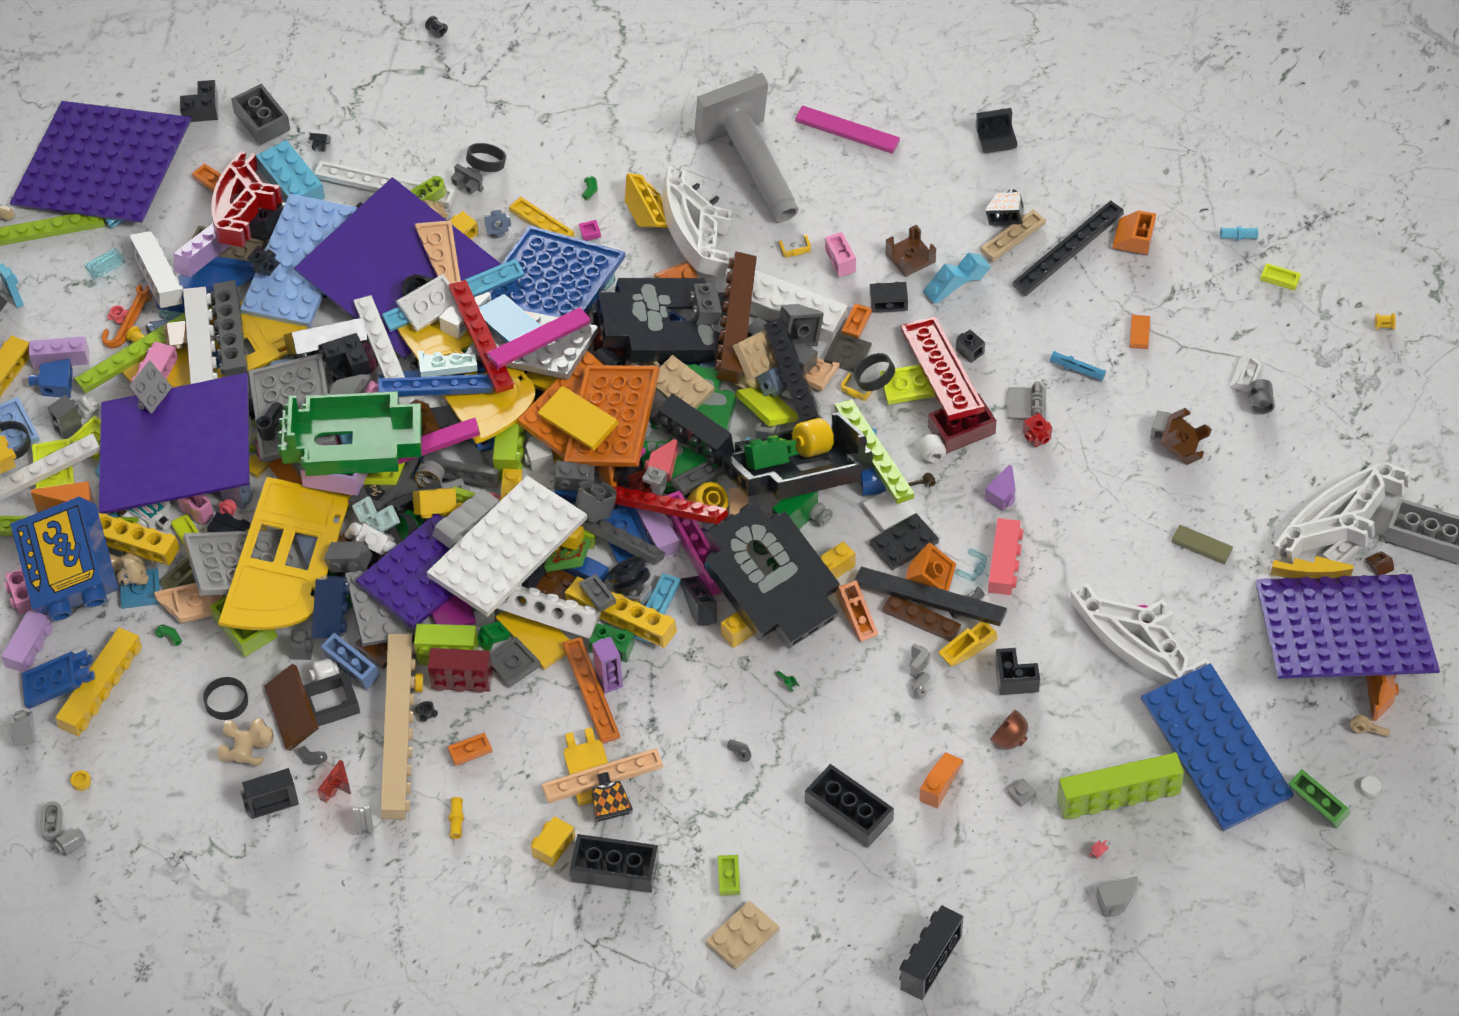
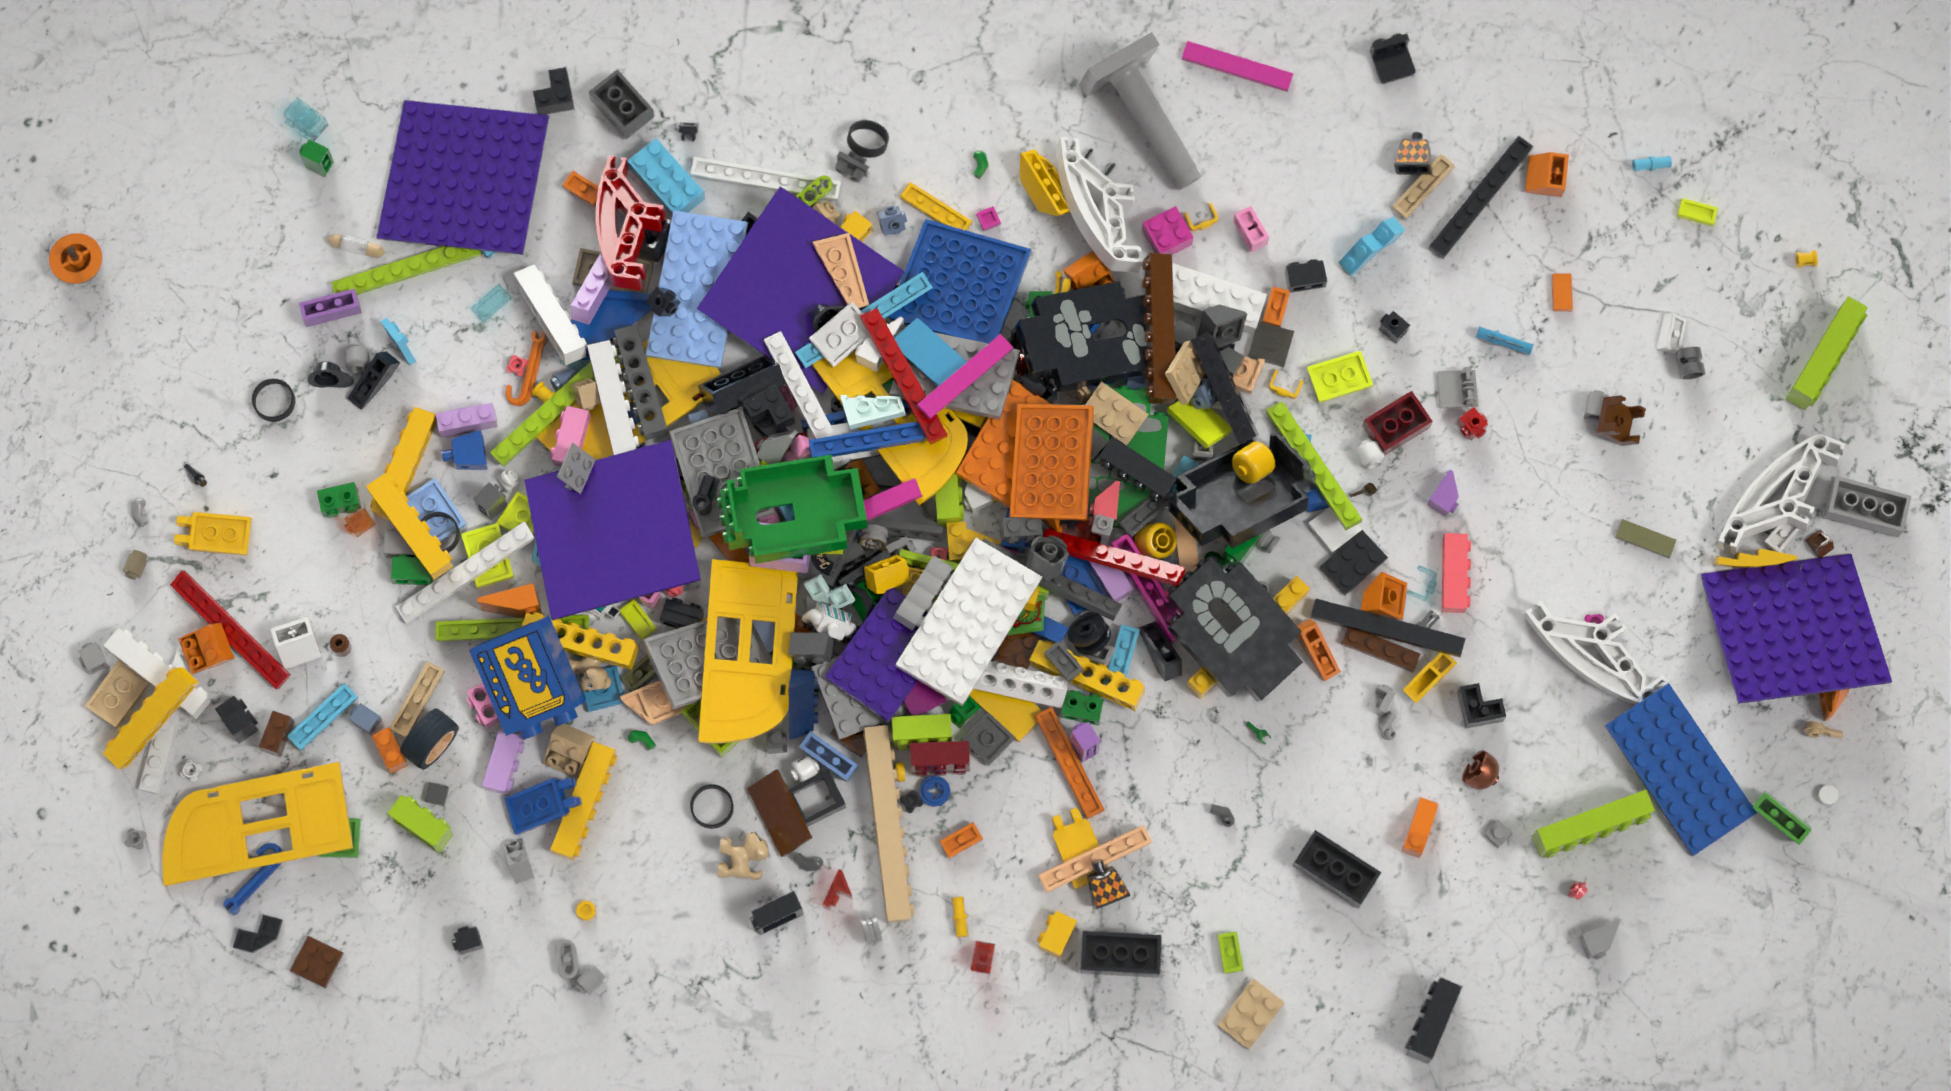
camera: 10 degrees left, 20 degrees up
(92, 633) = (568, 750): none -> tan slope
(447, 698) = (929, 784): none -> blue gear
(472, 858) = (982, 957): none -> clear red slope
(578, 418) = (1019, 470): yellow tile -> none
(705, 304) = (1127, 318): dark grey brick -> none
(764, 247) = (1167, 232): none -> dark pink brick
(768, 453) = (1214, 488): green brick -> none
(867, 362) = (1317, 378): black tyre -> none
(911, 253) = (1321, 217): reddish brown panel -> none
(942, 368) = (1371, 363): plate -> none
(1398, 396) = (1828, 354): none -> lime brick

